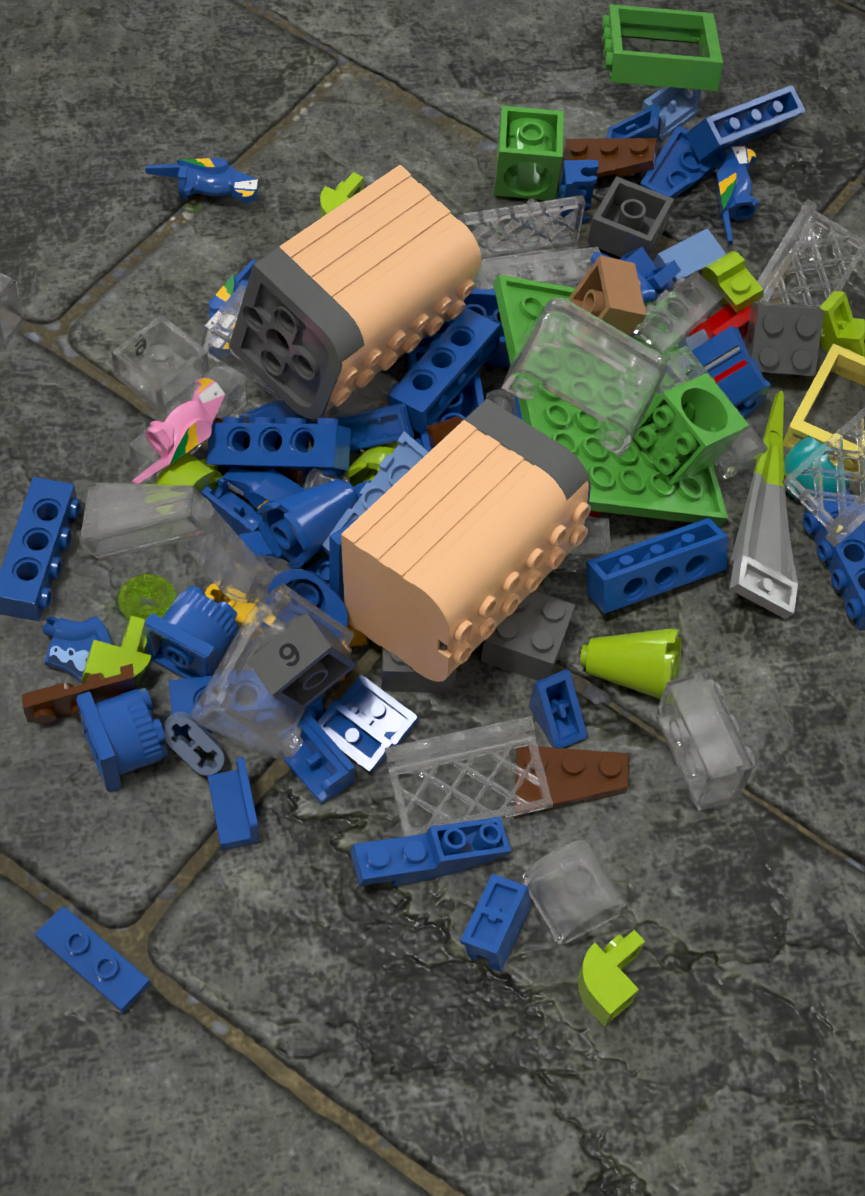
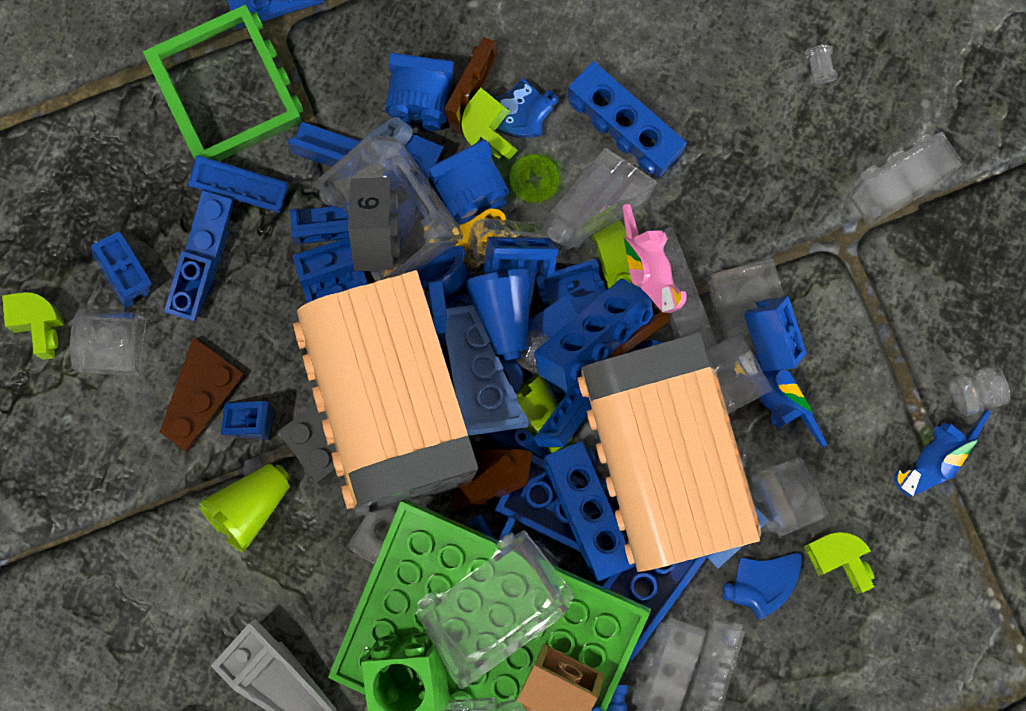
camera: 130 degrees right, 20 degrees up
(132, 176) = (975, 392): none -> clear wheel
(182, 316) = (775, 334): none -> blue hinge
(236, 1024) = (266, 51): none -> bright green window
(243, 535) = (520, 253): none -> blue hinge
(331, 859) = (238, 184): none -> blue plate
(462, 746) = (264, 320): clear fence -> none
(656, 565) = (317, 580): blue brick -> none
(704, 740) = (145, 505): clear brick -> none

